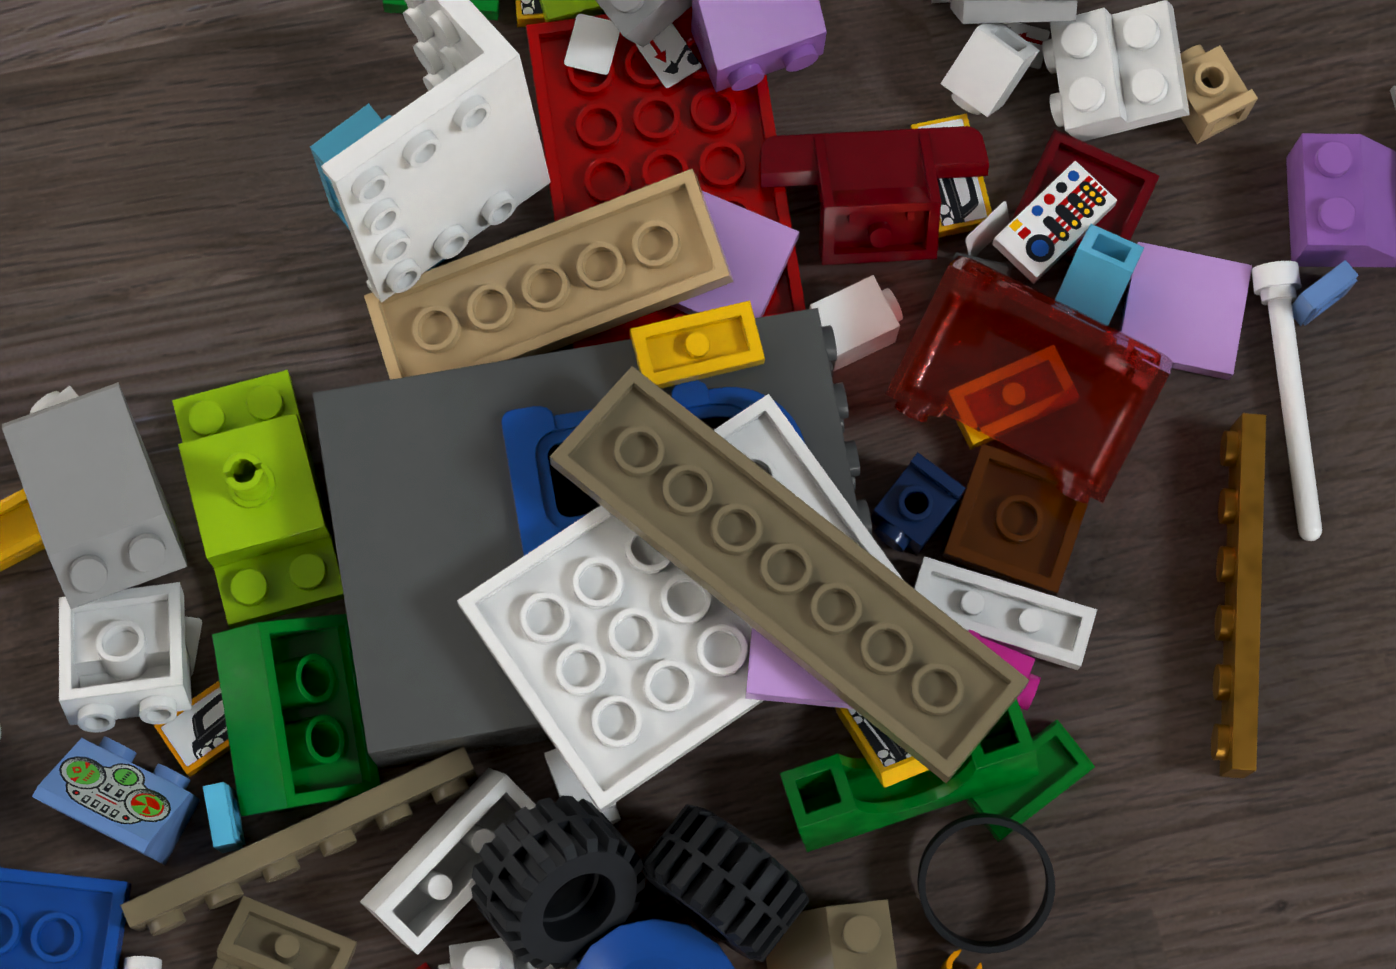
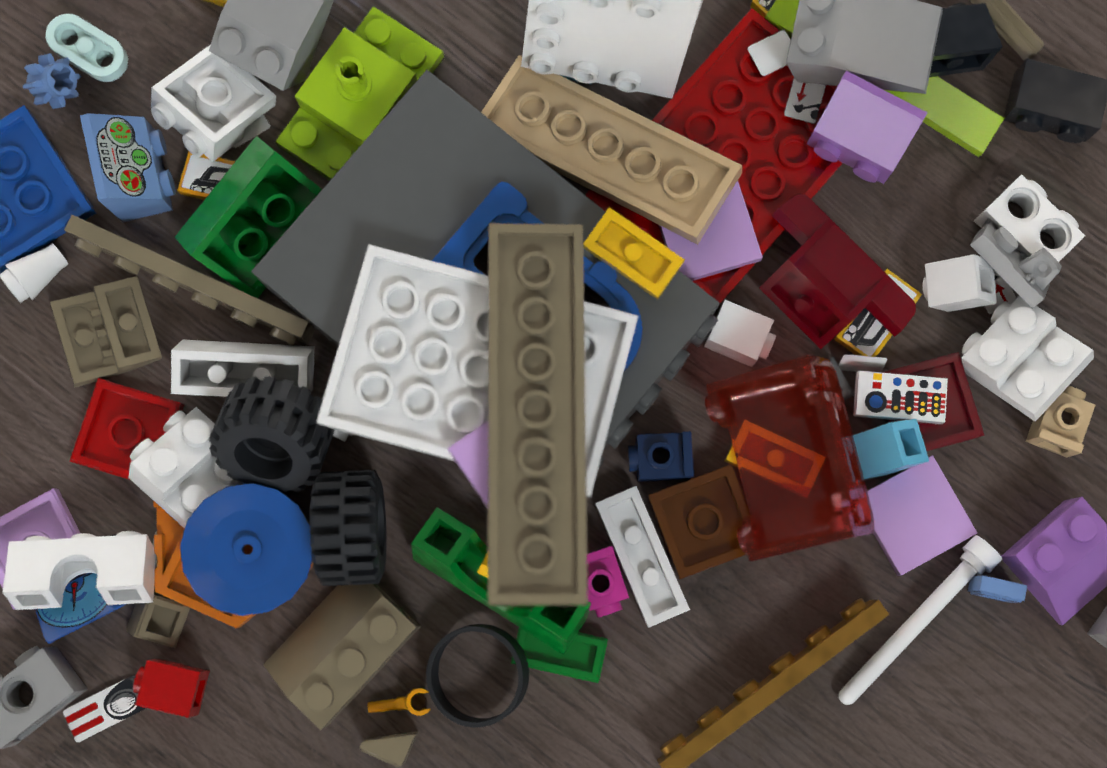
camera: 55 degrees right, 5 degrees up
(224, 817) = (165, 228): medium azure tile -> none

